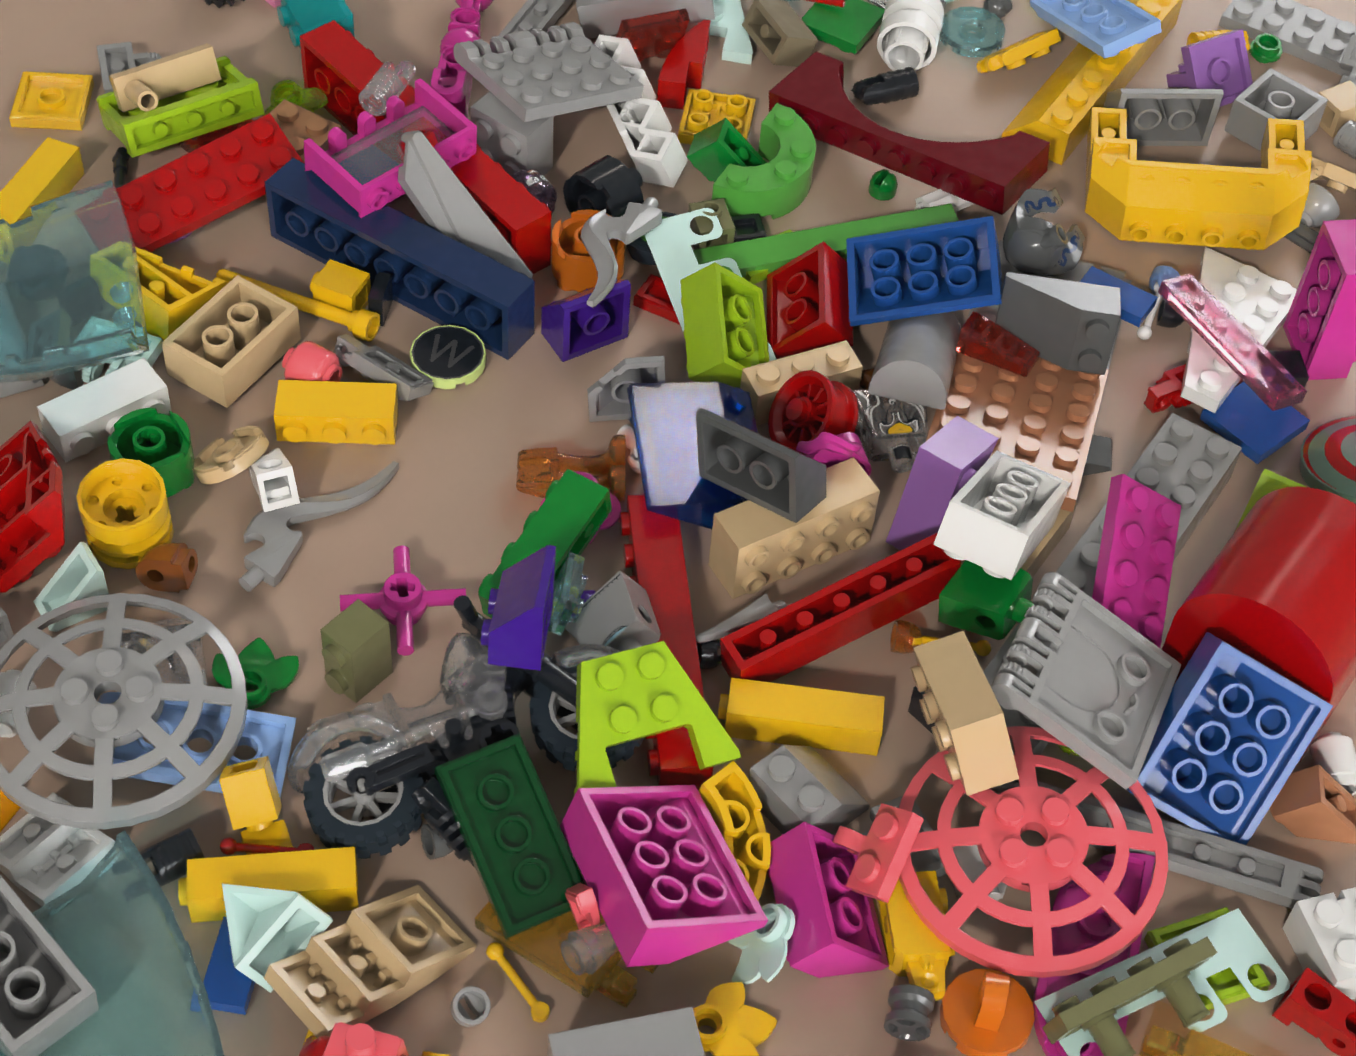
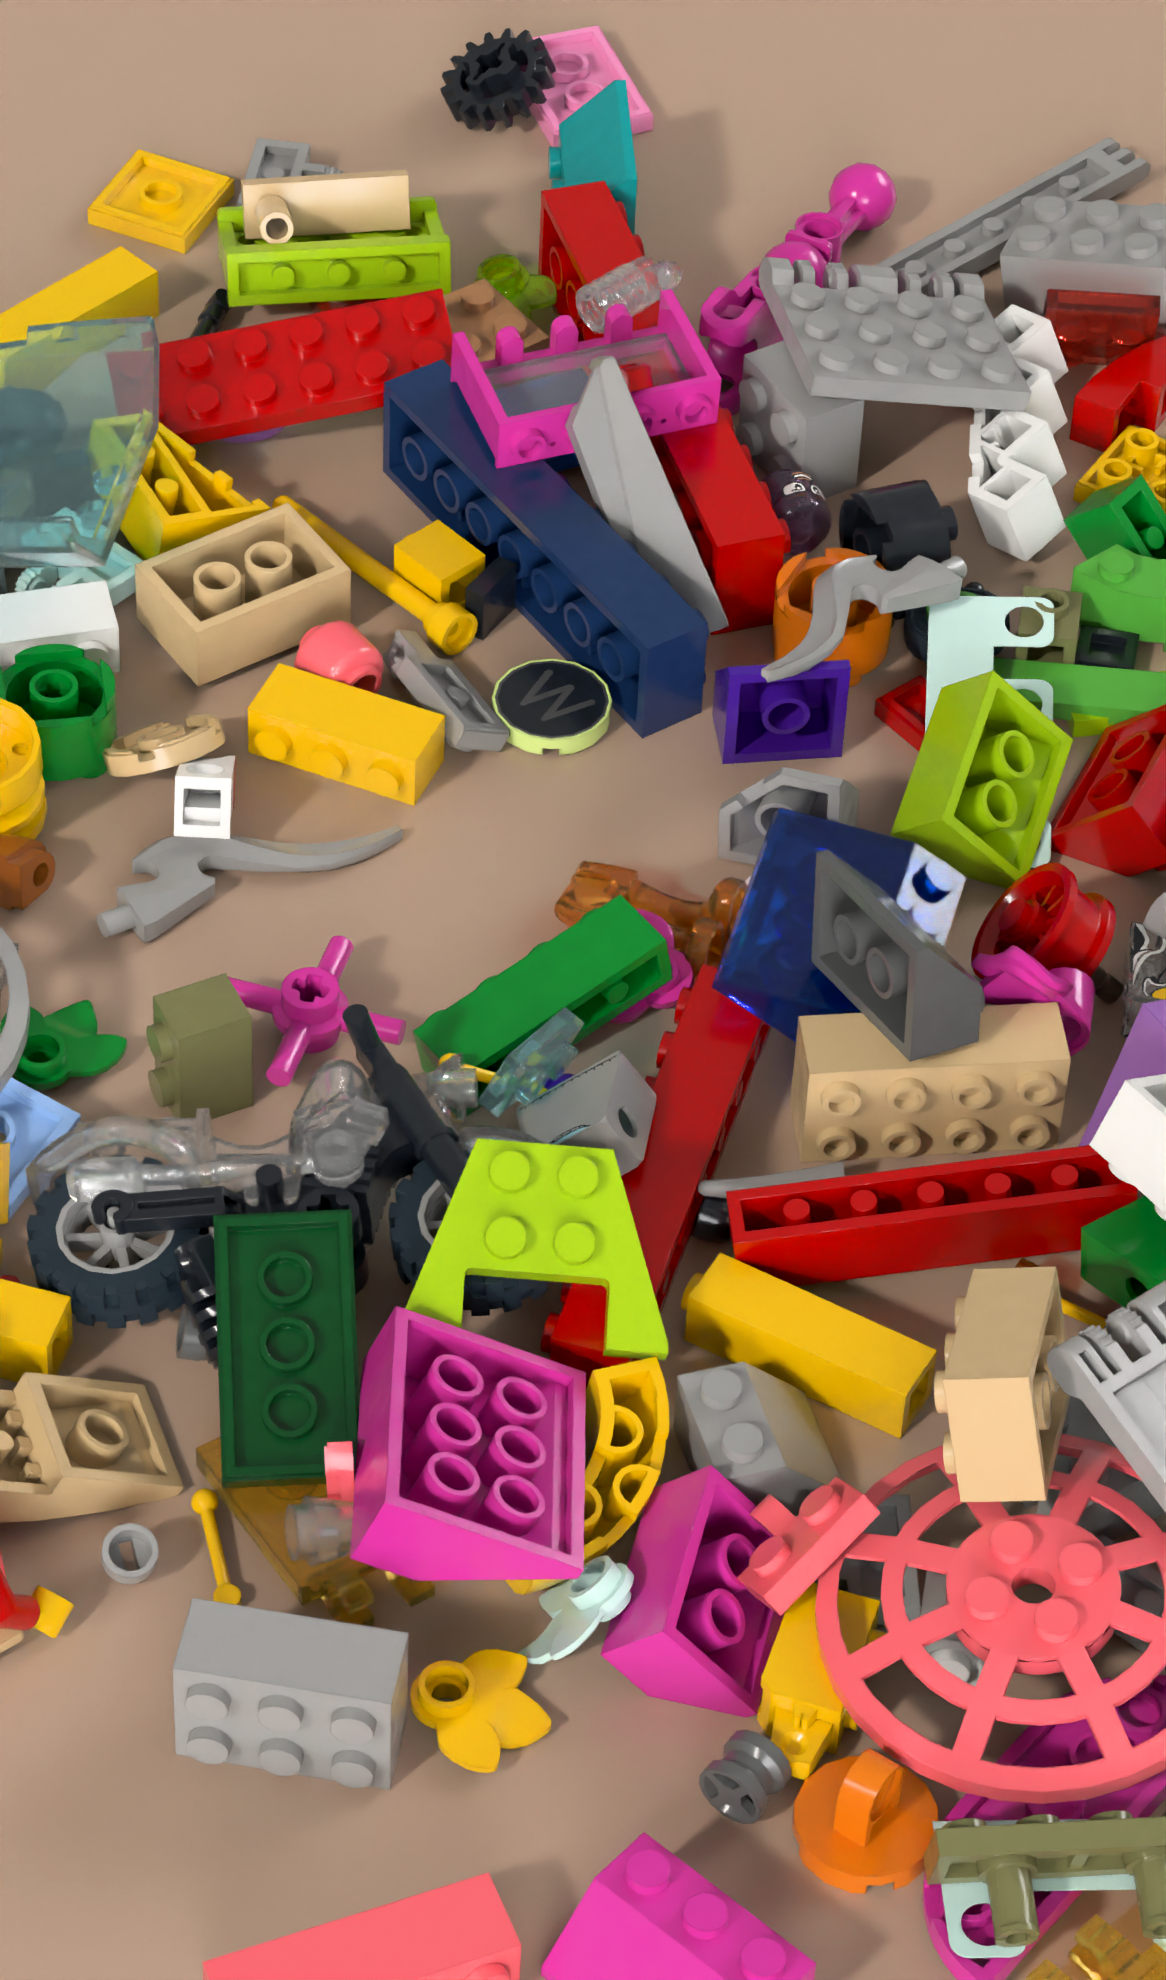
camera: 25 degrees right, 5 degrees down
(521, 612) = (432, 1052): dark purple slope -> none
(764, 380) = (1119, 872): tan brick -> none

